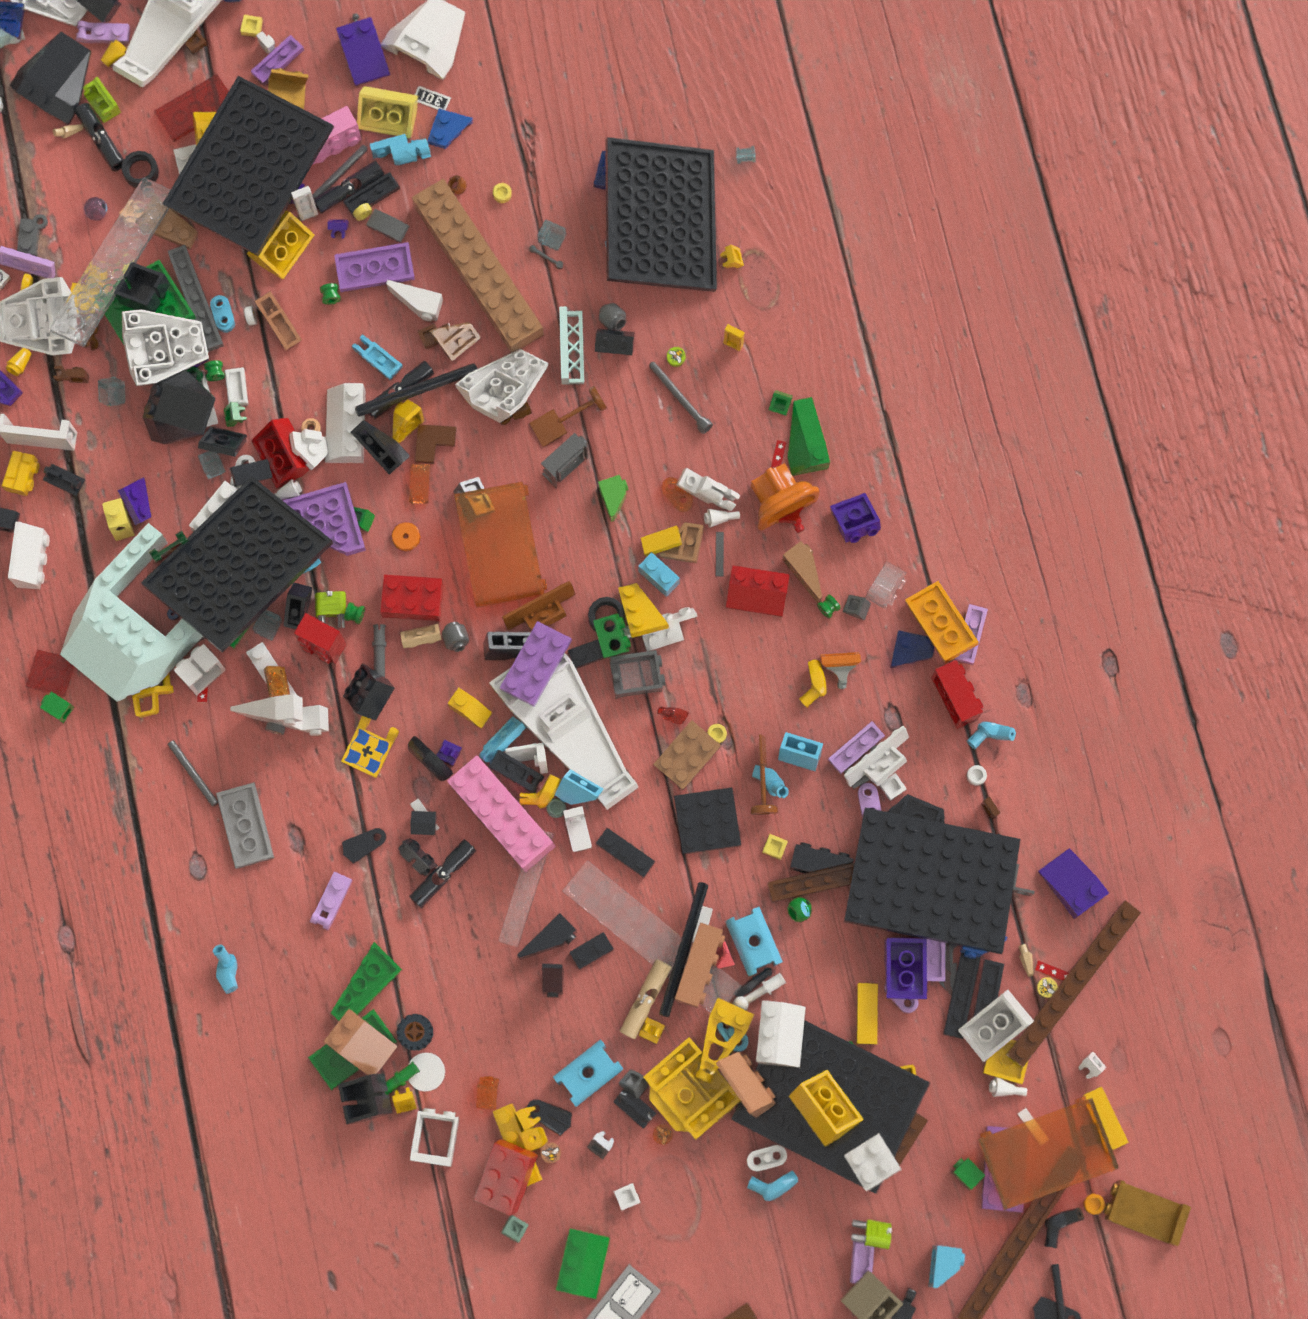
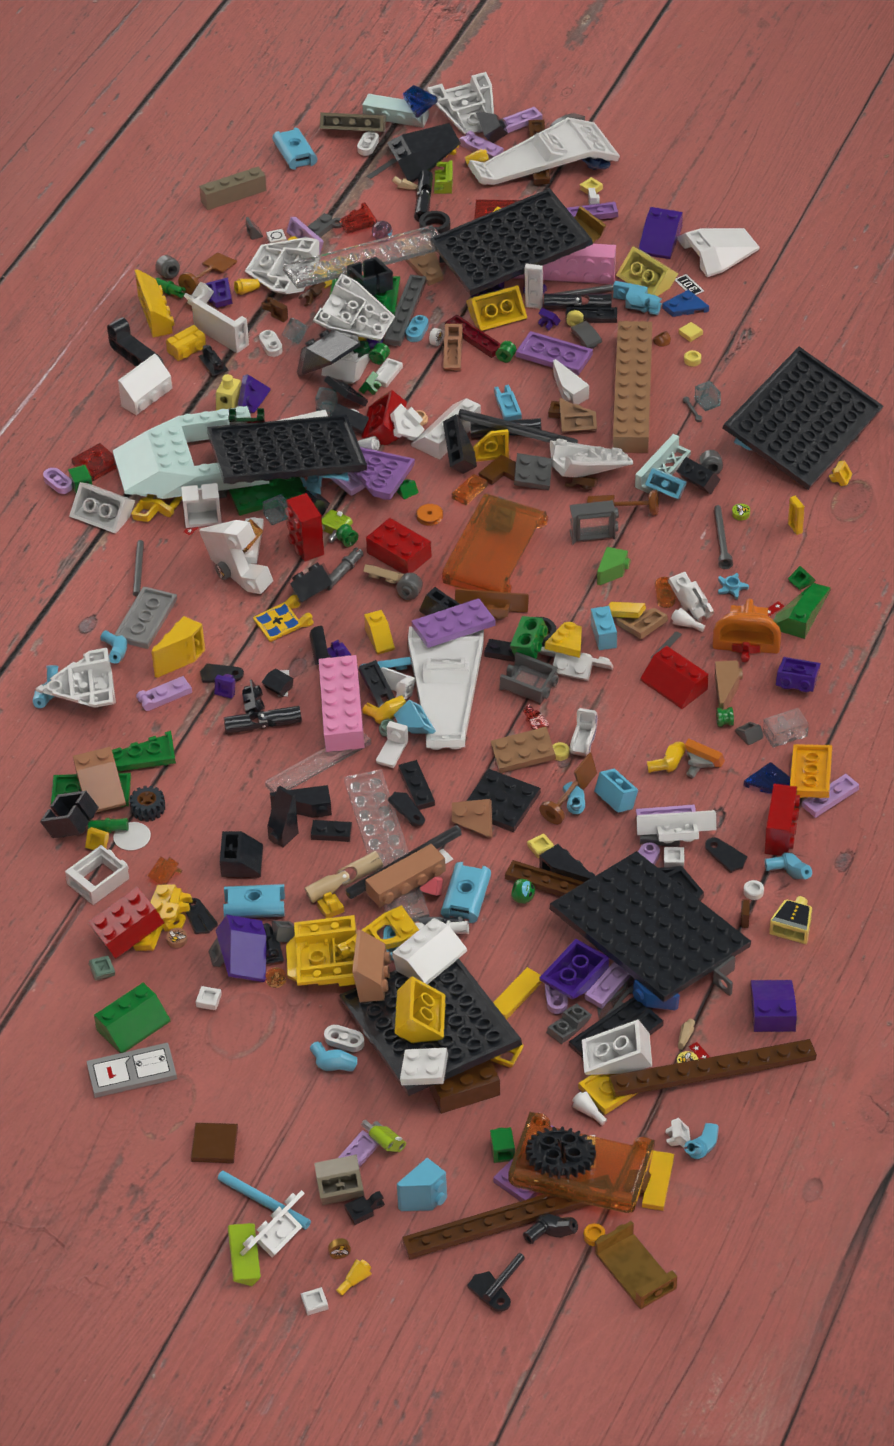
camera: 40 degrees right, 30 degrees down
(27, 120) = (380, 169): none -> dark grey sticker
(35, 721) = (57, 480): none -> lavender plate
(60, 206) = (358, 220): none -> clear red wing
(97, 418) = (270, 343): none -> white plate
(103, 727) = (101, 507): none -> white slope
(252, 879) = (118, 644): none -> medium azure arm
(260, 944) = (84, 682): none -> white wedge
(282, 289) = (476, 336): none -> dark red tile
(312, 844) = (178, 647): none -> yellow slope
(381, 858) = (225, 685): none -> dark purple tile
(463, 428) = (533, 471): none -> dark grey plate
(477, 160) = (690, 331): none -> light yellow tile
(542, 1034) = (240, 855): none -> black slope
(595, 371) = (666, 483): none -> medium azure brick
(622, 1133) = (243, 947): none -> dark purple slope
(639, 886) = (407, 808): none -> black piece
(701, 857) = (474, 815): none -> nougat wing
(728, 450) = (732, 585): none -> medium azure animal
(728, 706) = (584, 732): none -> white animal
(930, 753) = (725, 854): none -> black piece
(930, 1016) = (571, 1022): none -> dark grey slope
(1032, 788) = (792, 920): none -> torso
(1041, 1147) = (575, 1150): none -> black gear
(1117, 1062) = (705, 1143): none -> medium azure arm

